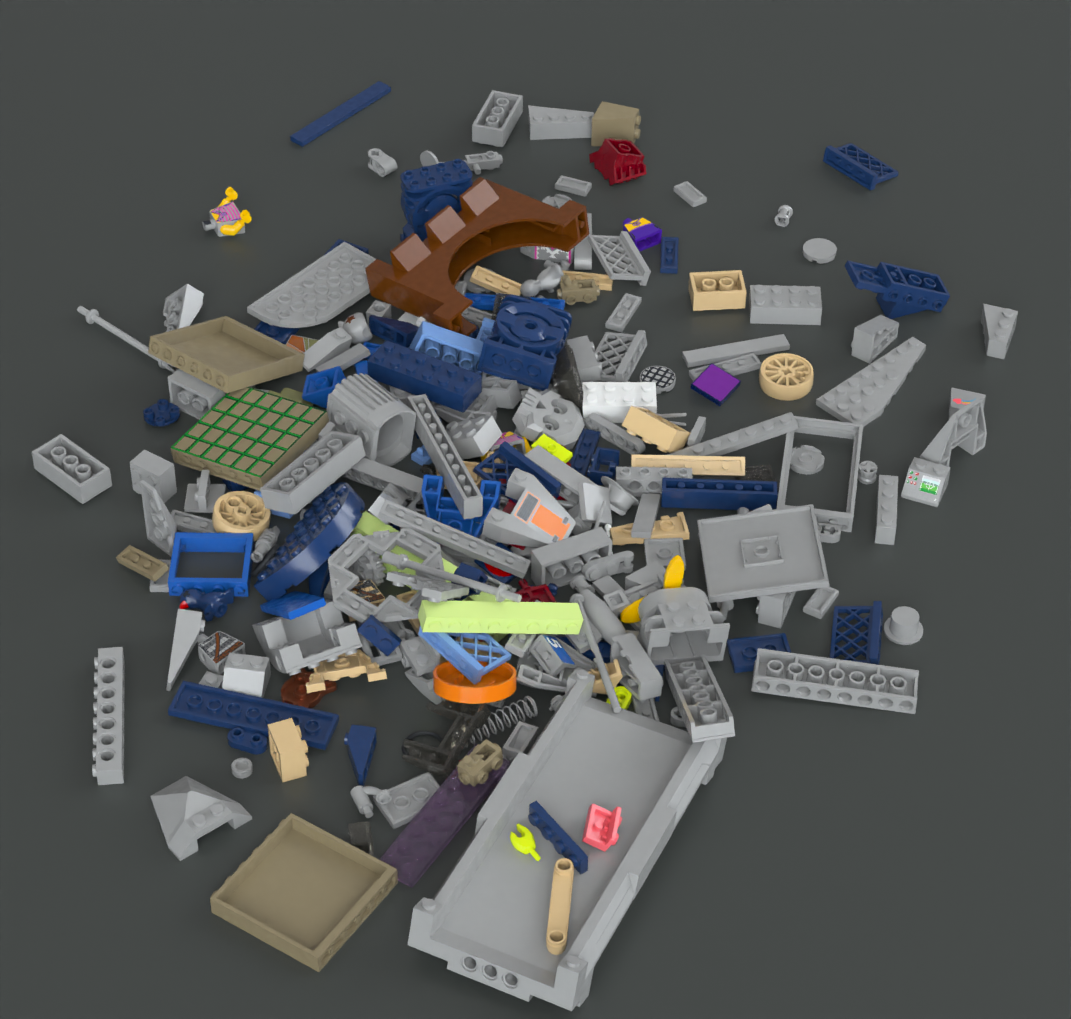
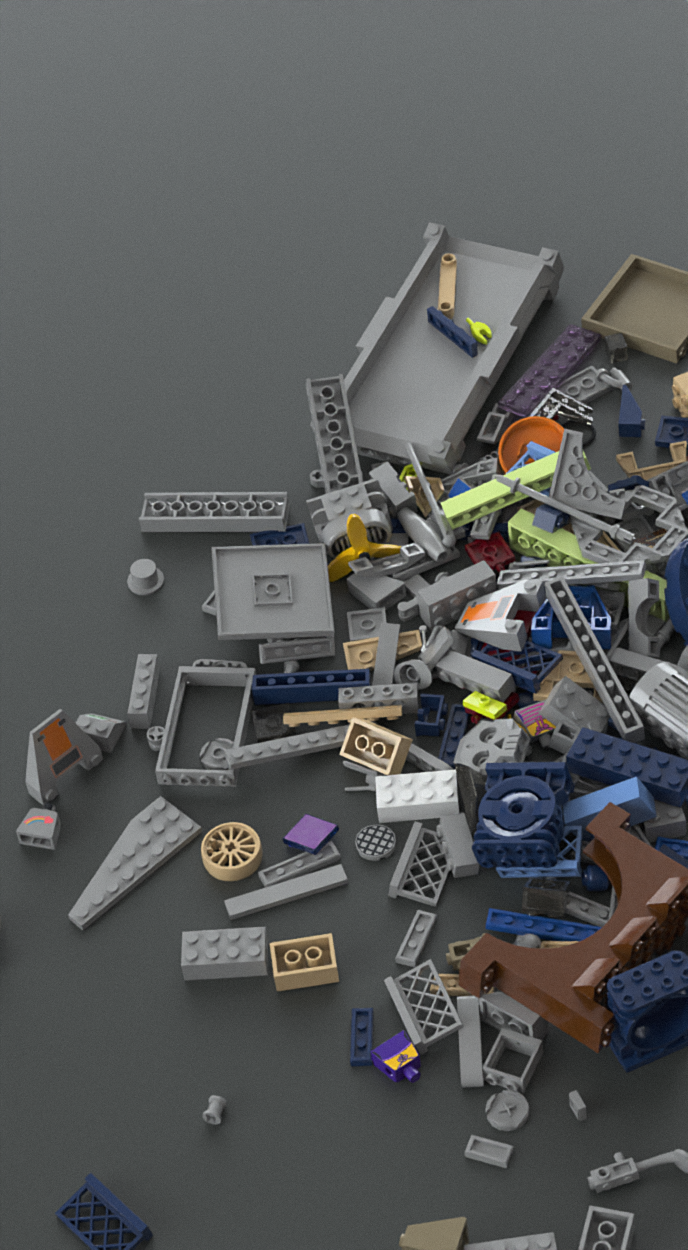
camera: 175 degrees left, 5 degrees up
(479, 763) = (522, 382): dark tan brick -> none
(602, 827) = (416, 343): coral bracket -> none
(618, 161) = (430, 1190): dark red slope -> none
(690, 194) = (334, 1149): light grey tile -> none
(697, 432) = (333, 765): light grey tile -> none
(819, 250) = (174, 1059): light grey tile -> none
(873, 337) = (127, 910): light grey wedge -> none
(873, 632) = (174, 563): dark blue fence -> none
(900, 288) = (88, 964): dark blue wedge -> none

